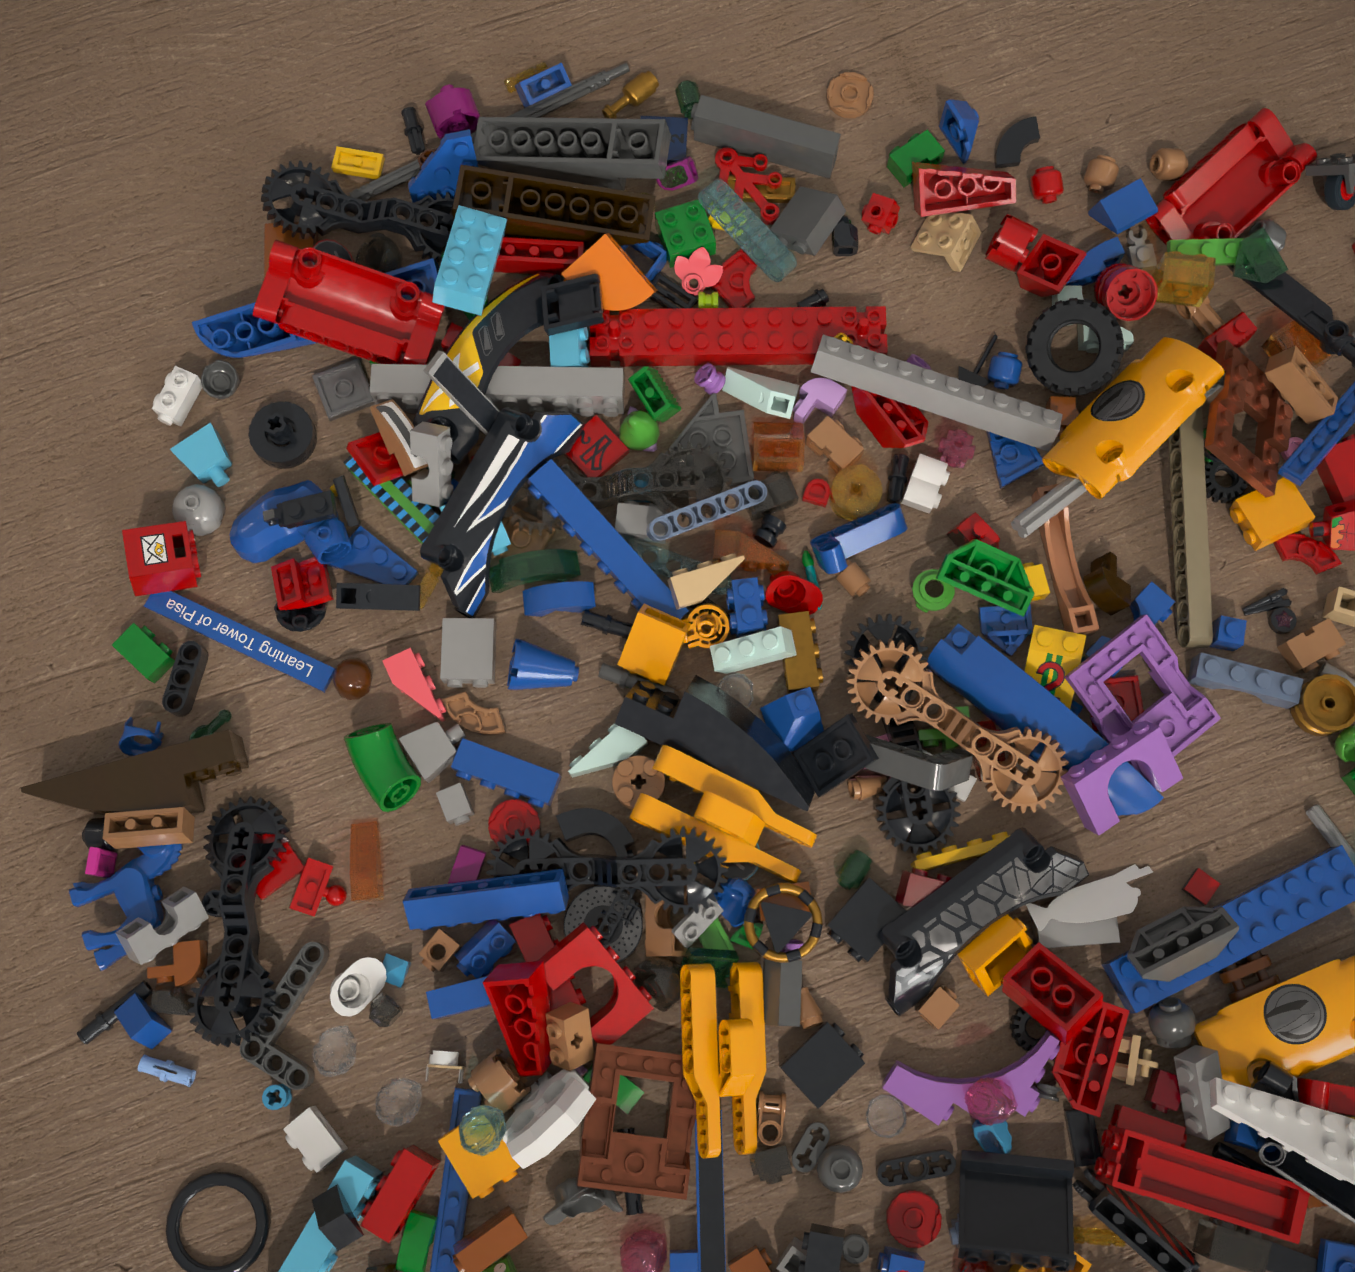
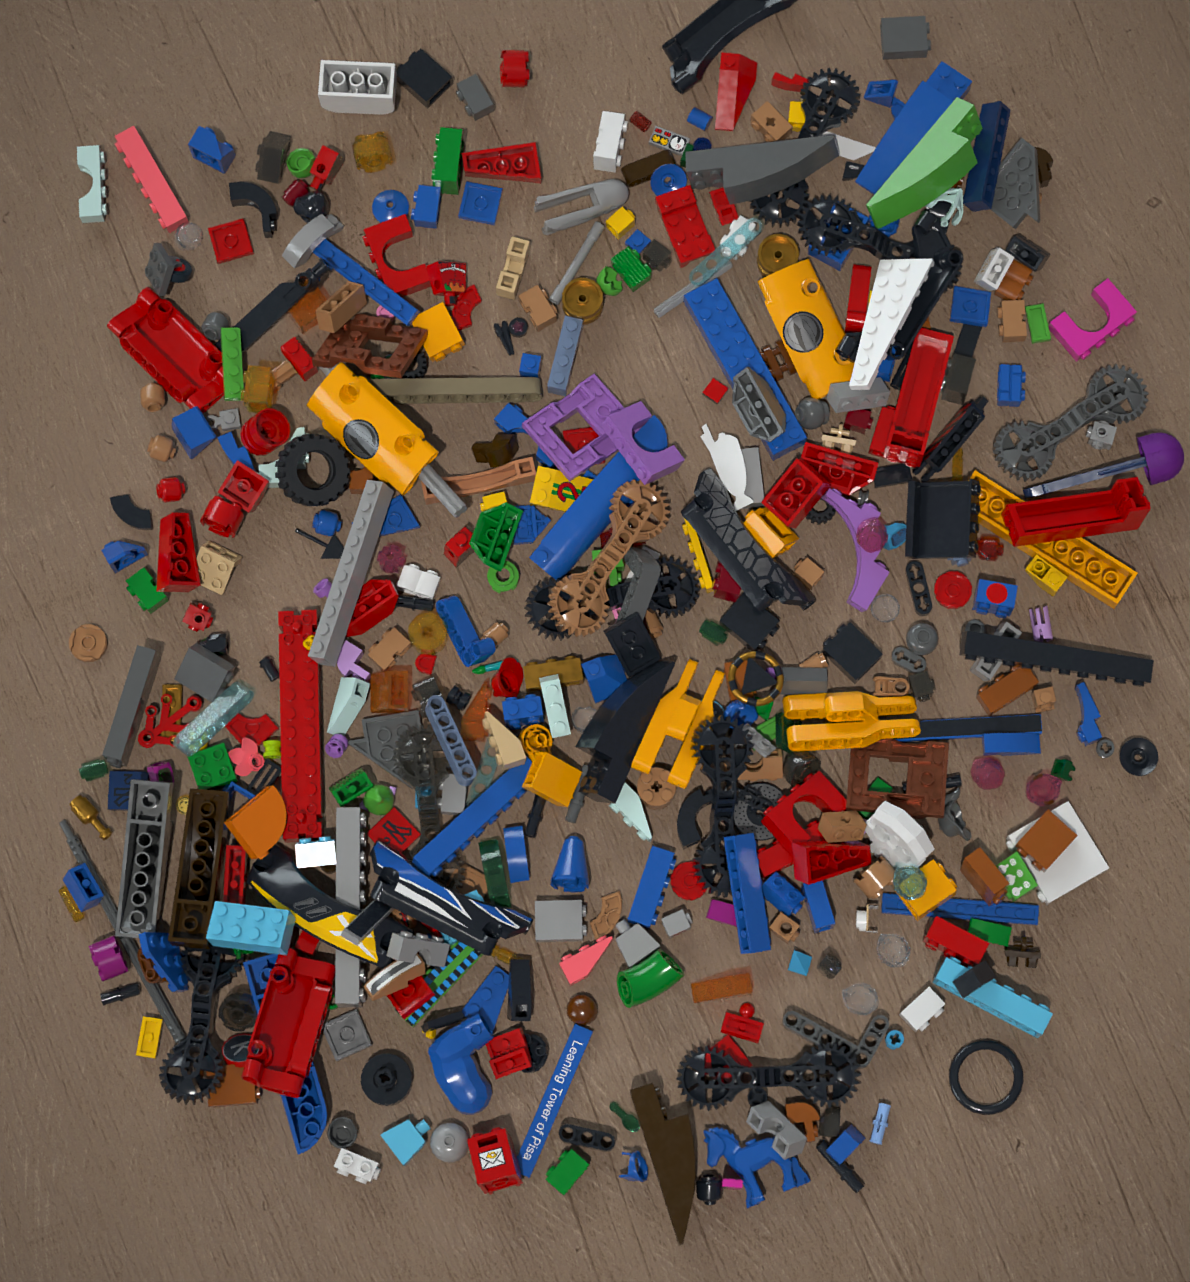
camera: 90 degrees left, 0 degrees up
(148, 827) = (705, 1145): medium nougat brick -> none
(302, 510) = (457, 1046): black hinge -> none
(357, 986) = (814, 987): white piece -> none
(578, 304) = (285, 843): black container -> none
(1258, 258) = (240, 334): clear green slope -> none

